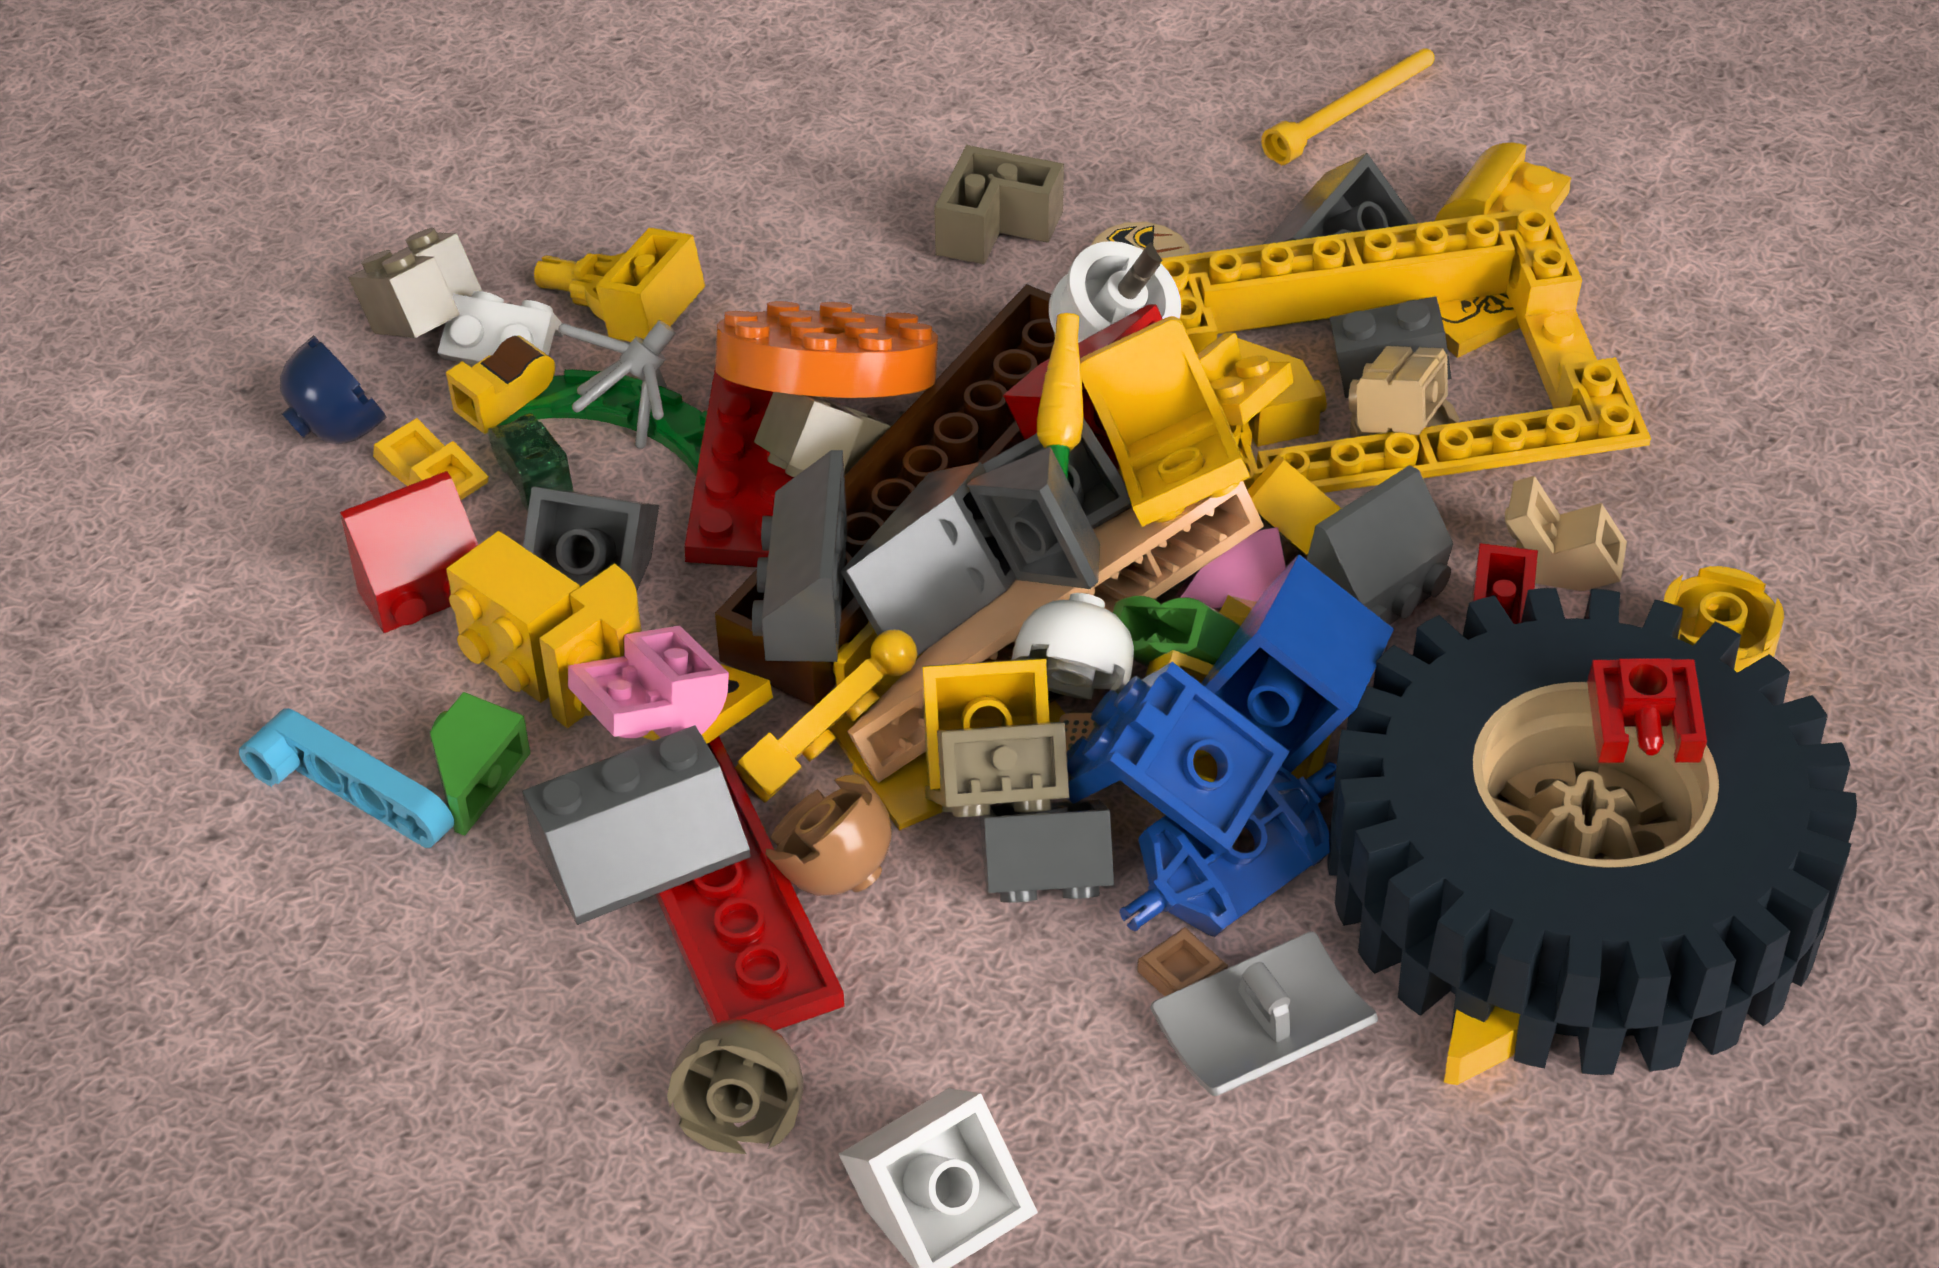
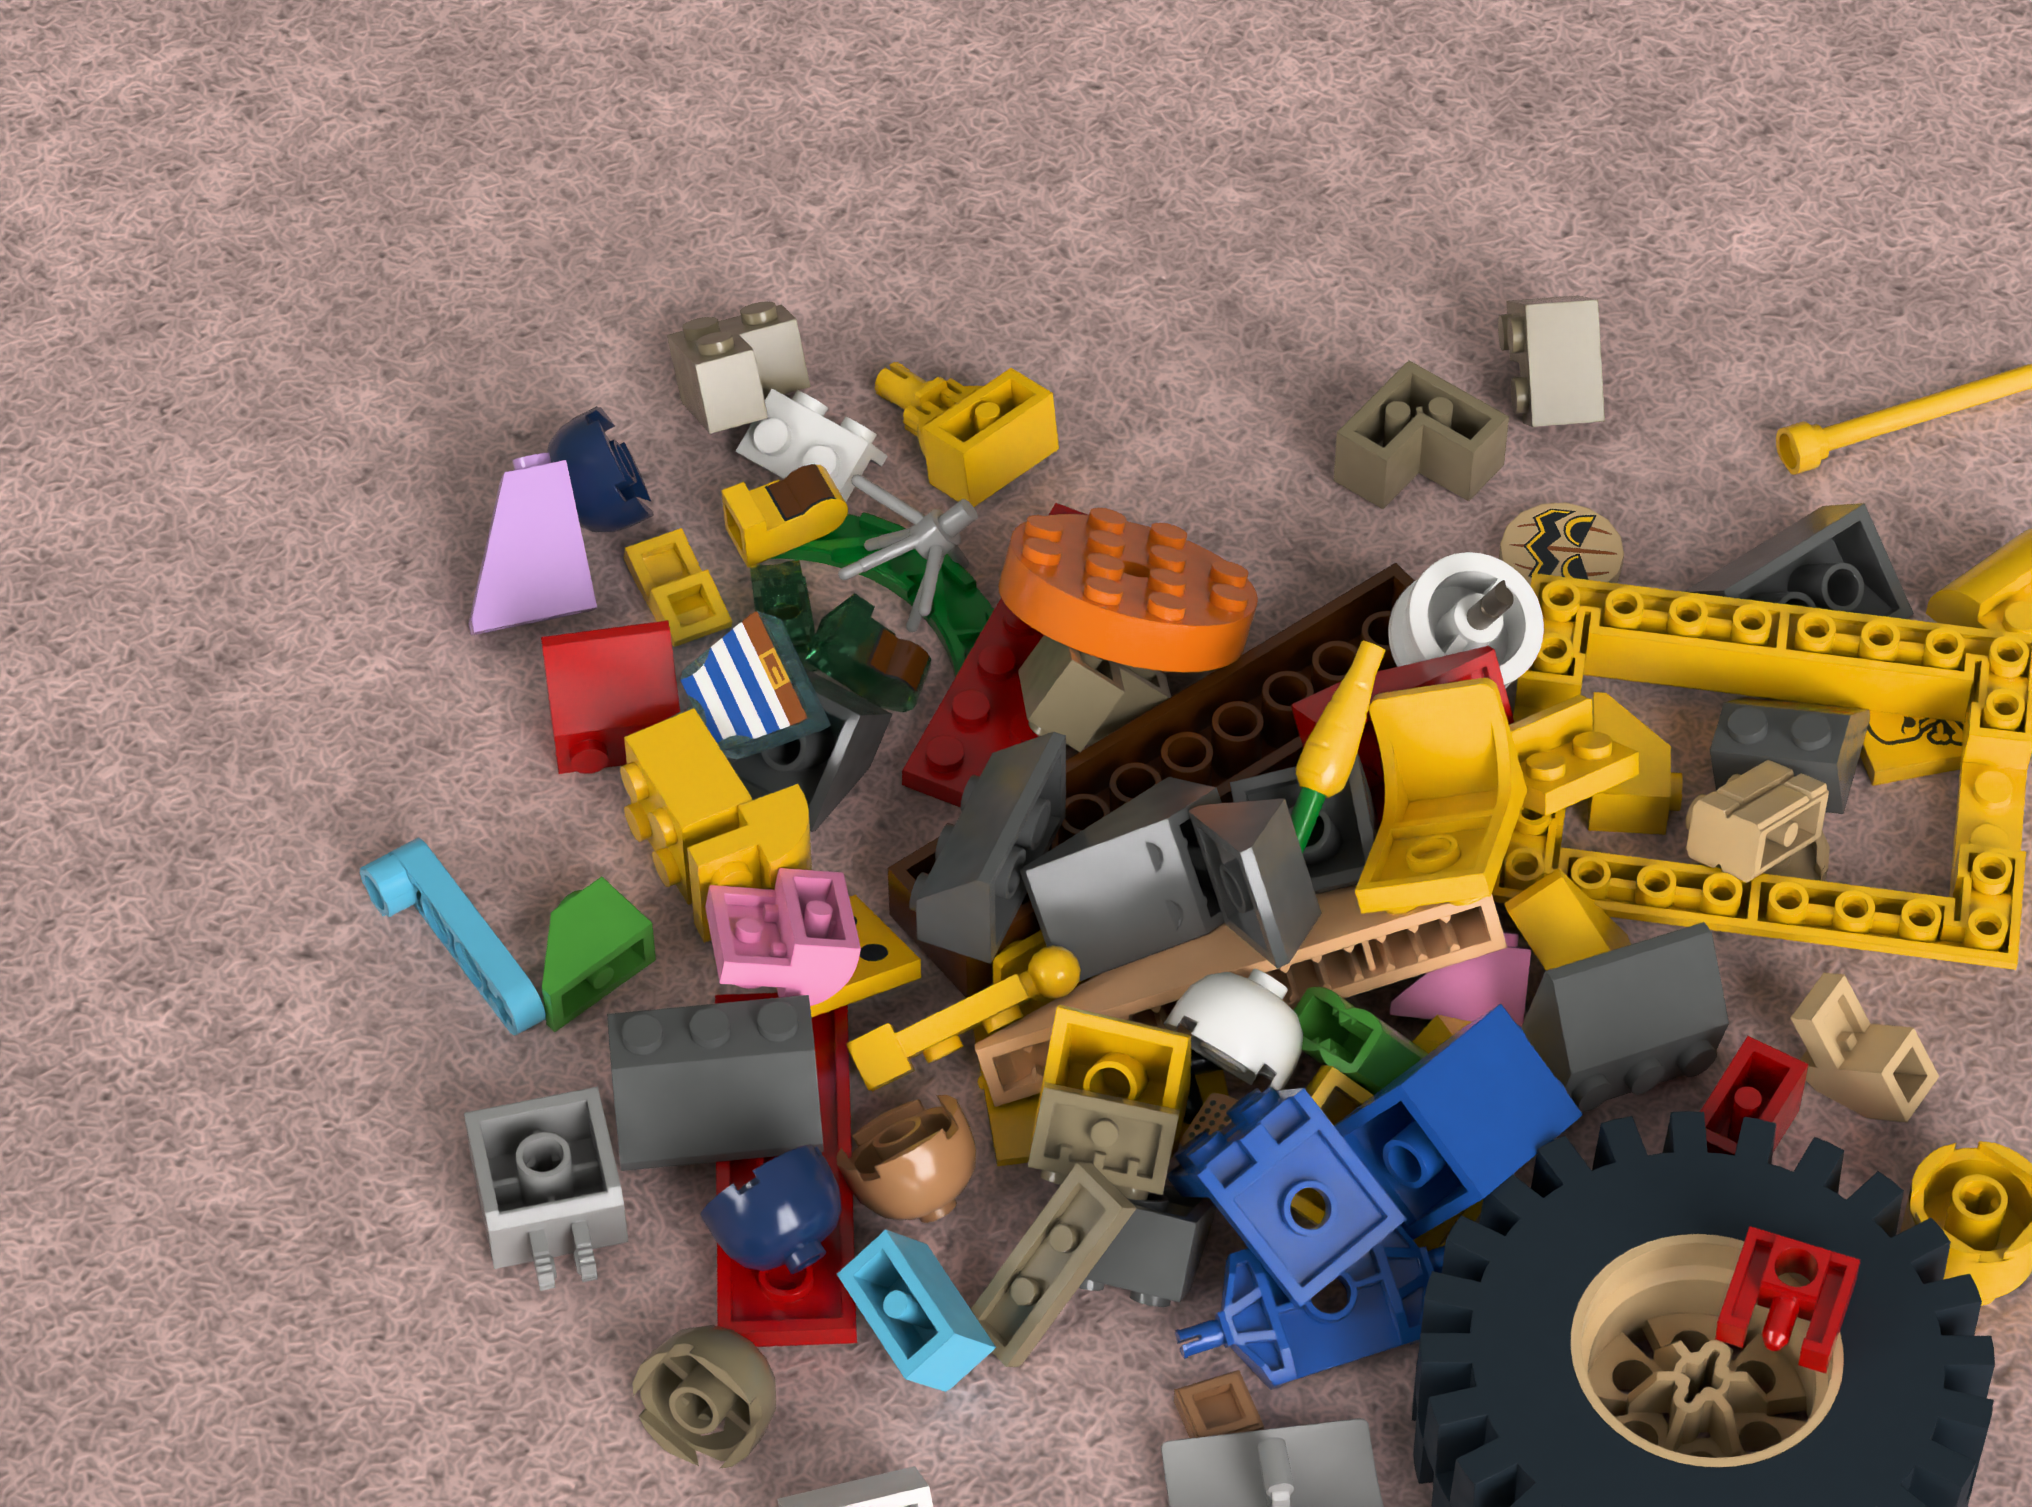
camera: 20 degrees right, 5 degrees up
(298, 460) = (533, 551): none -> lavender slope
(516, 952) = (547, 1182): none -> light grey hinge
(542, 504) = (753, 689): none -> torso
(618, 467) = (869, 656): none -> clear green leg
(742, 911) = (778, 1213): none -> dark blue cylinder
(892, 959) = (916, 1311): none -> medium azure brick
(995, 884) = (1051, 1262): none -> dark tan plate
(1076, 119) = (1557, 358): none -> brick

